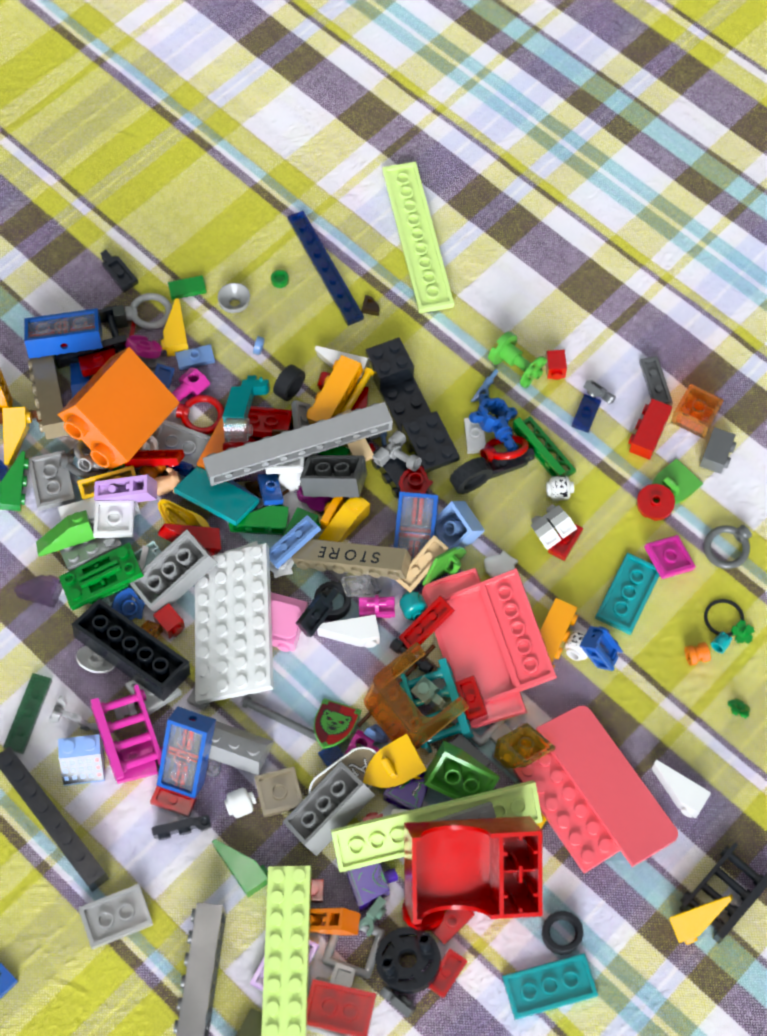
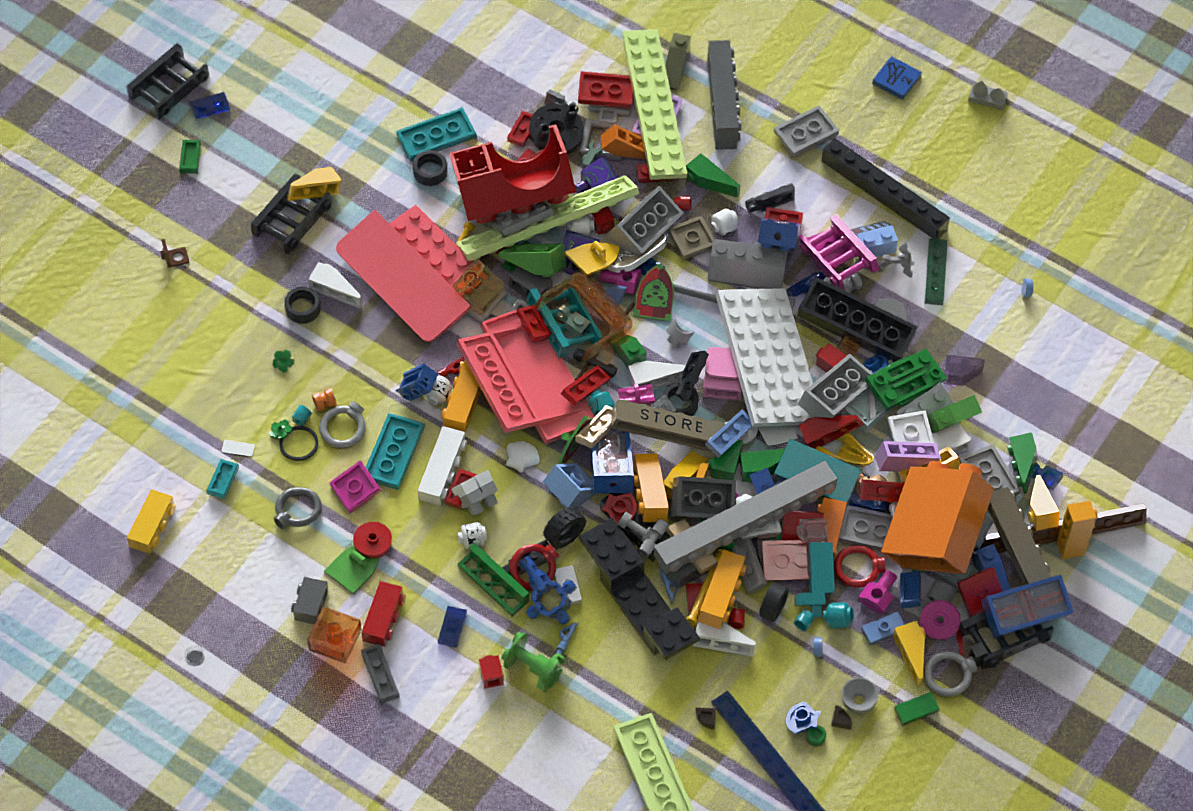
camera: 170 degrees right, 5 degrees down
(118, 271) = (999, 714): black hinge -> none
(160, 715) = (804, 284): none -> clear blue plate
(232, 368) = (838, 615): none -> teal head
(255, 289) = (841, 719): none -> dark brown tile
(264, 371) = (804, 620): none -> teal hose
(280, 840) = (683, 202): none -> red hose
(288, 290) = (801, 718): none -> animal
(319, 673) = (678, 334): none -> light grey piece
(372, 658) = (629, 350): none -> green slope
(382, 502) = (649, 487): none -> light orange brick
(565, 674) = (450, 368): none -> red hand
(582, 564) = (442, 466): none -> white brick
(596, 390) = (443, 648): plate -> none
(666, 638) = (354, 411): none -> light grey piece
(724, 758) = (302, 317): none -> black tyre

